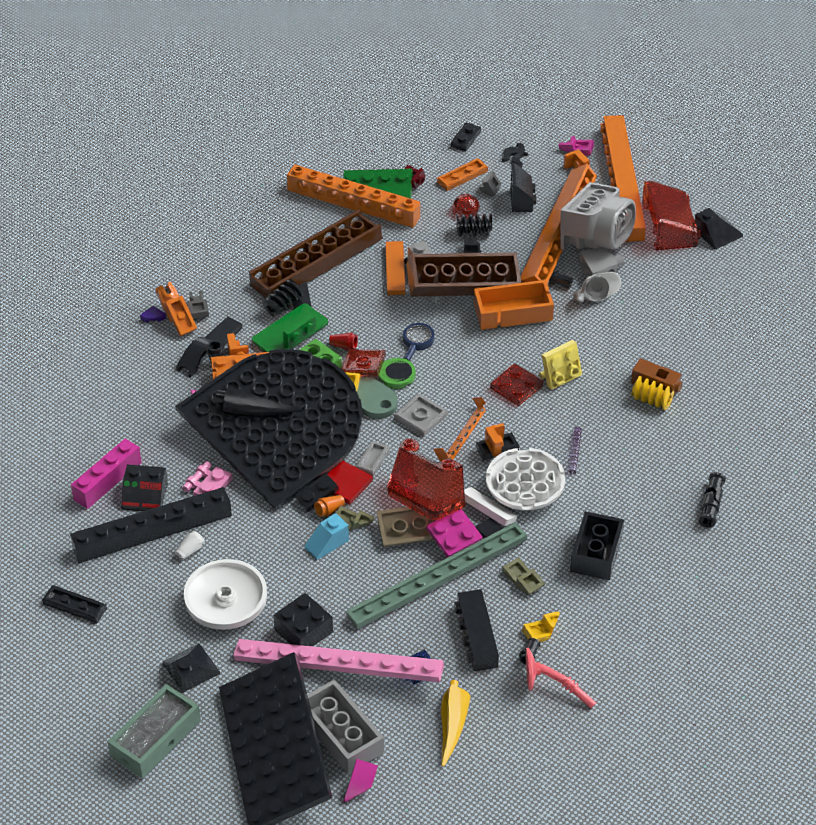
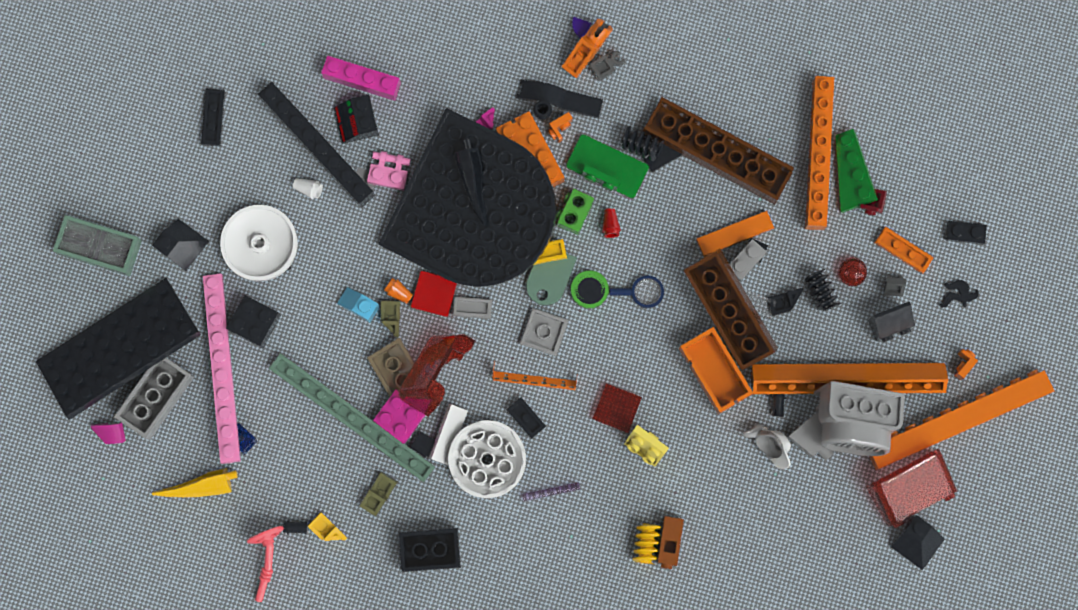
camera: 70 degrees right, 35 degrees up
(320, 488) = (408, 274): black plate -> none
(364, 362) = (586, 253): clear red tile -> none
(477, 630) = (300, 474): black brick -> none
(494, 438) = (519, 416): orange bracket -> none
(584, 146) = (996, 356): dark pink slope -> none

